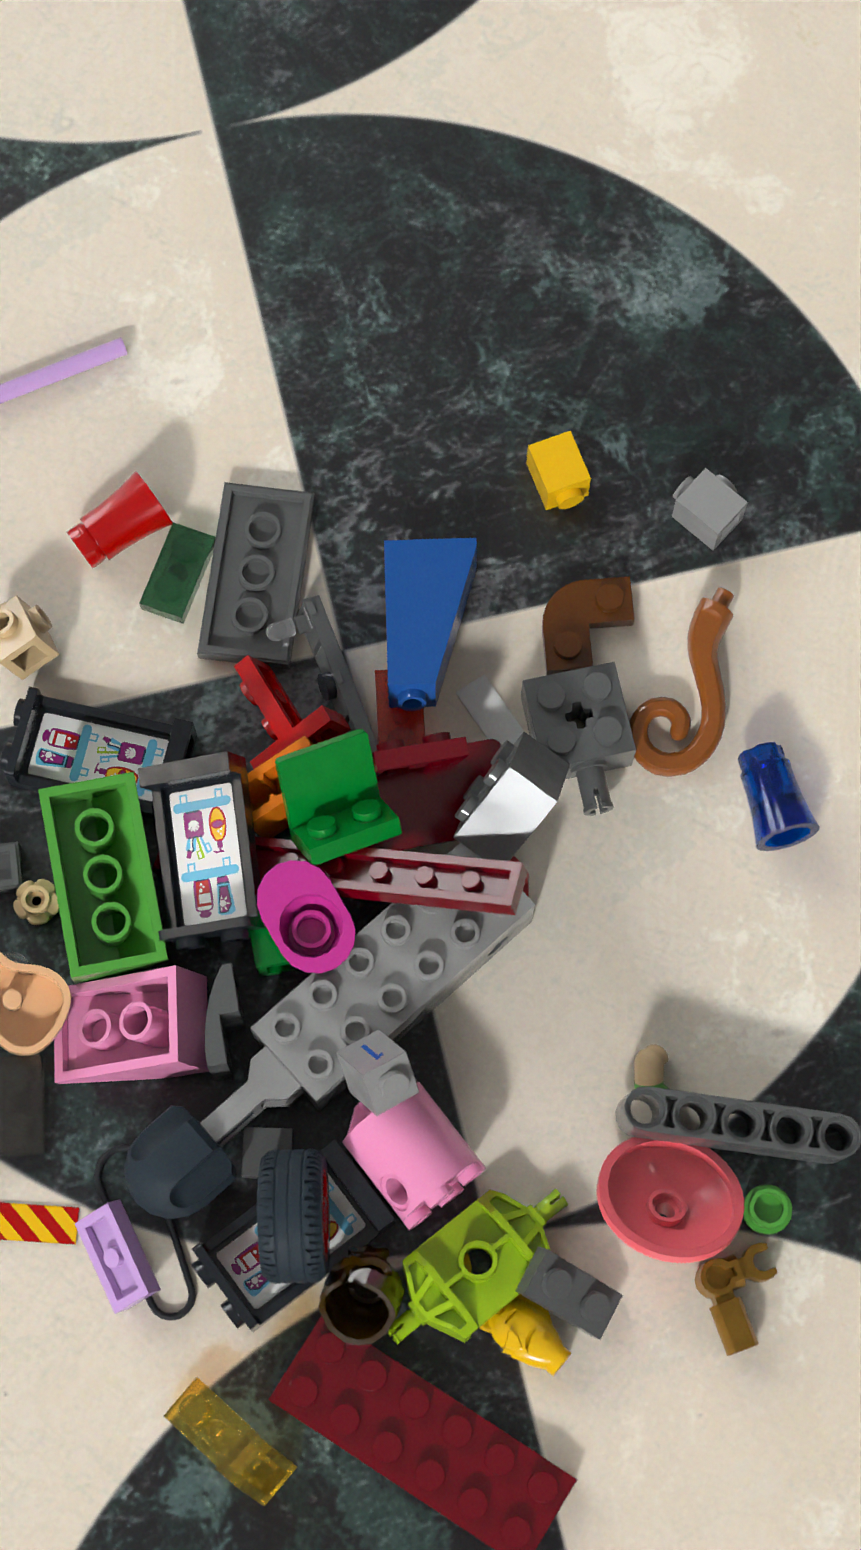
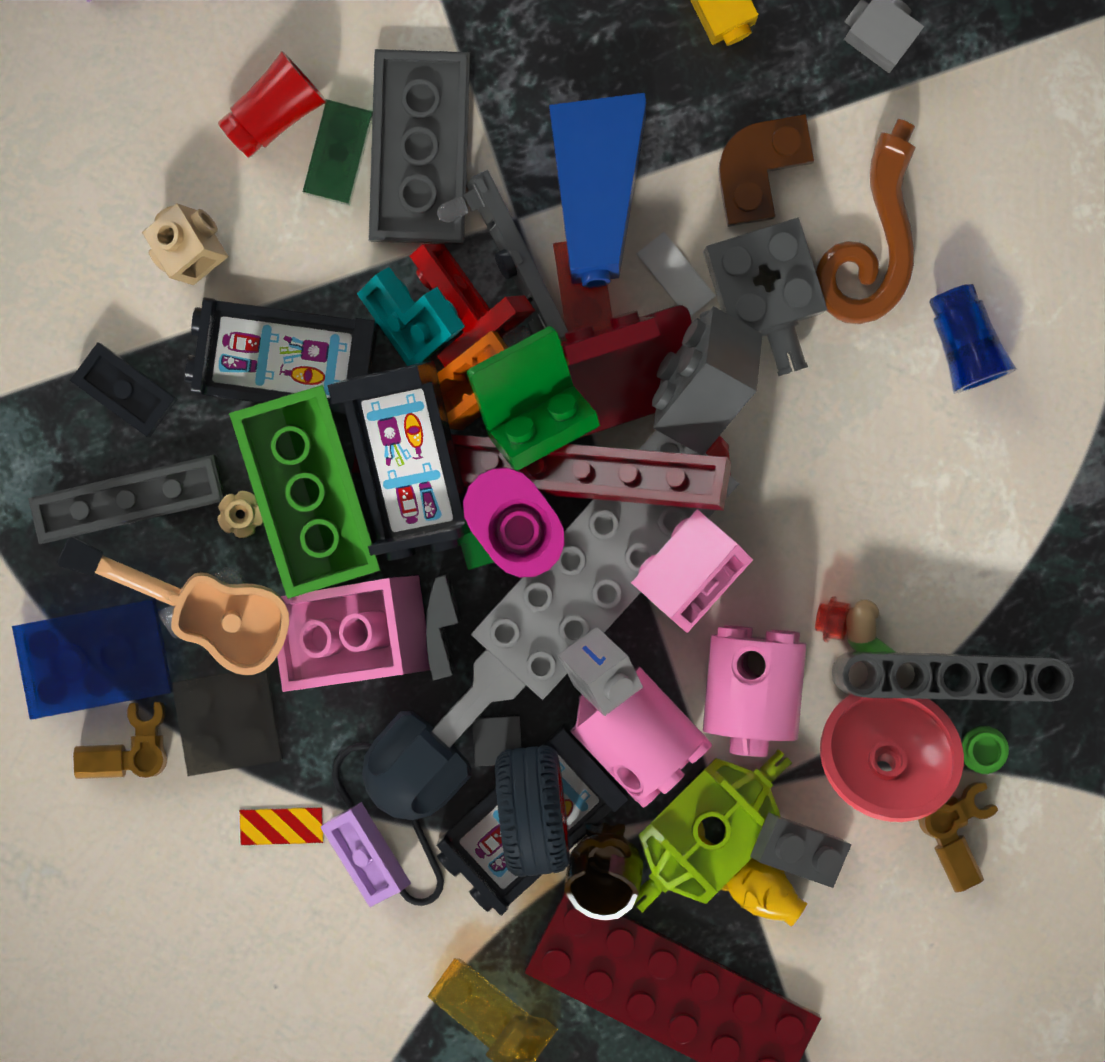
camera: 10 degrees left, 15 degrees up
(223, 727) = (412, 327): none -> teal plate
(482, 985) = (691, 570): none -> bright pink slope
(538, 1131) = (751, 705): none -> bright pink cylinder
(619, 1060) = (832, 619): none -> clear red plate

